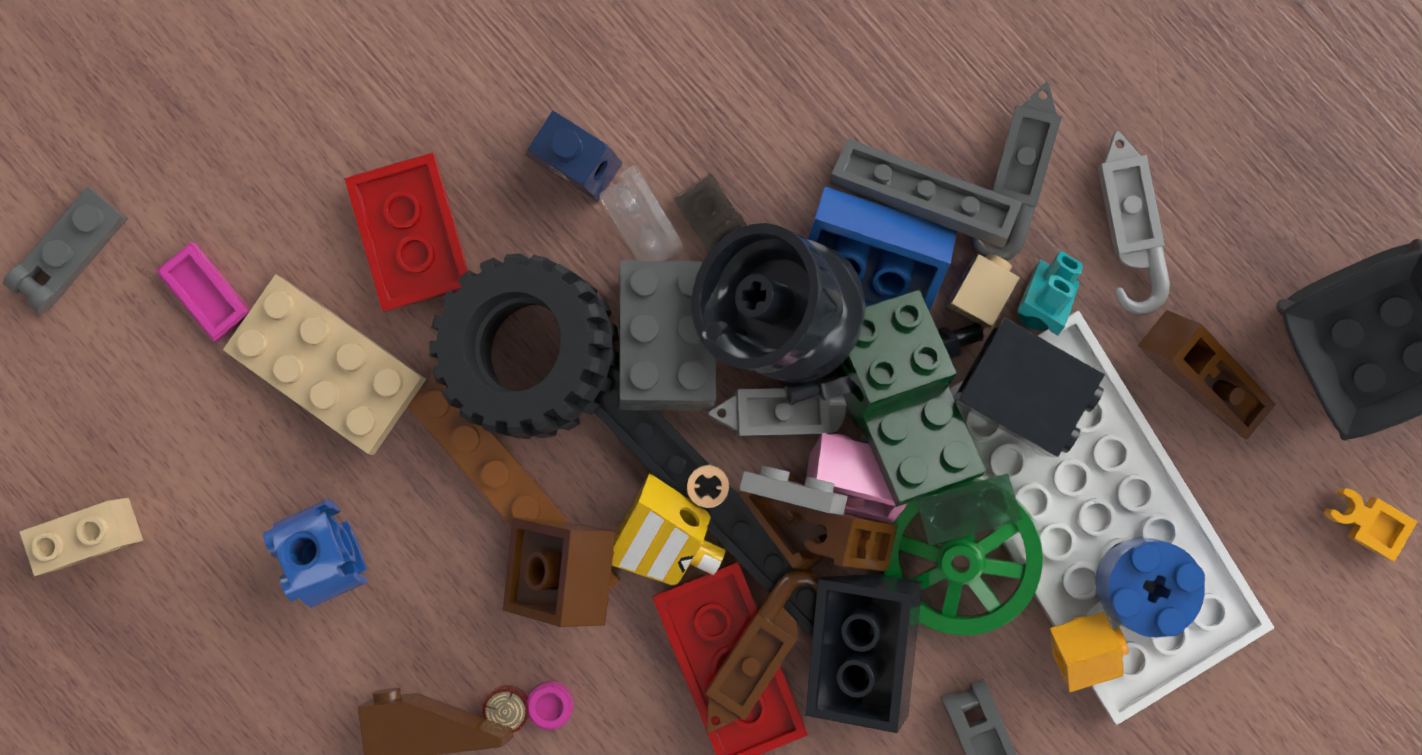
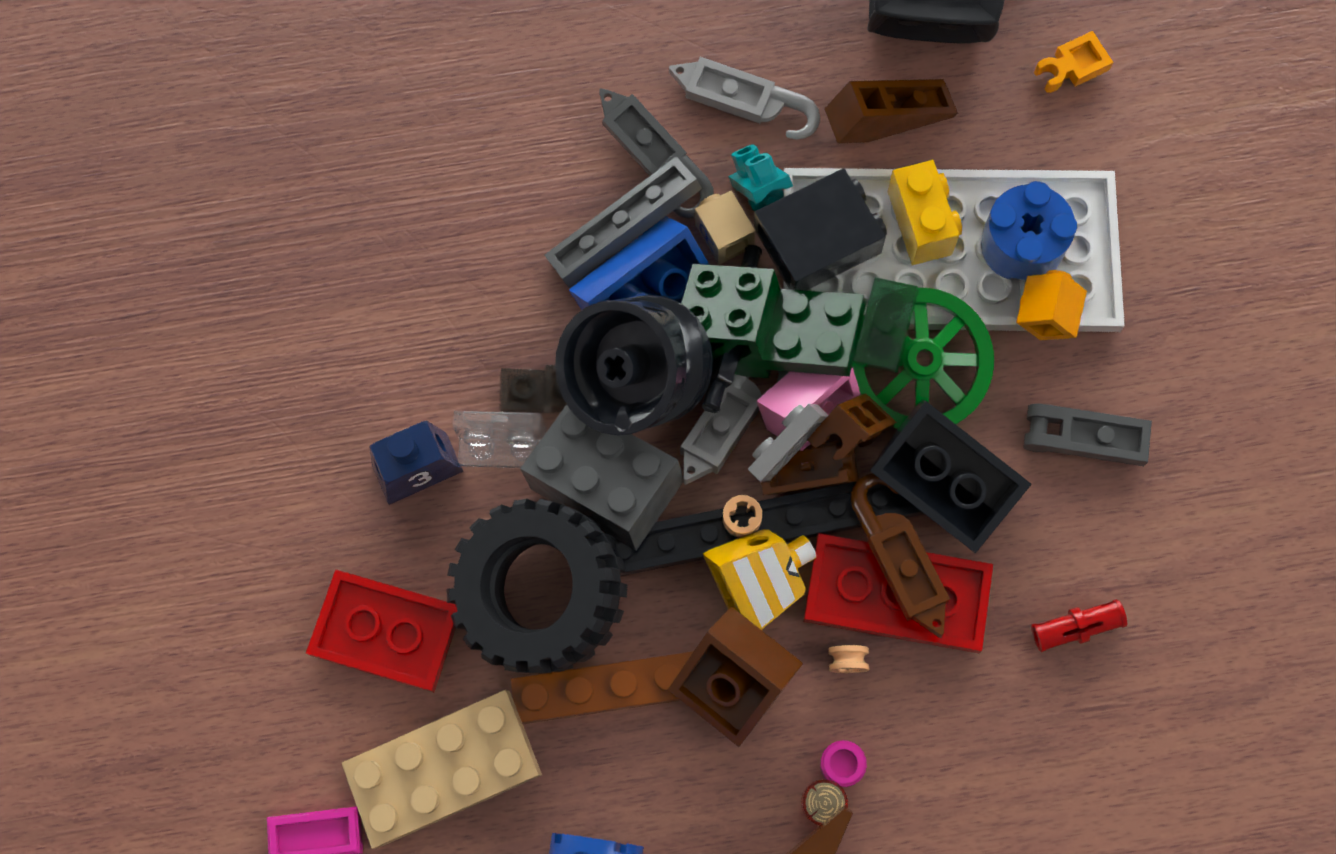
camera: 50 degrees left, 15 degrees down
(642, 657) = (848, 659): none -> light nougat bush
(1110, 475) = (924, 212): none -> yellow brick

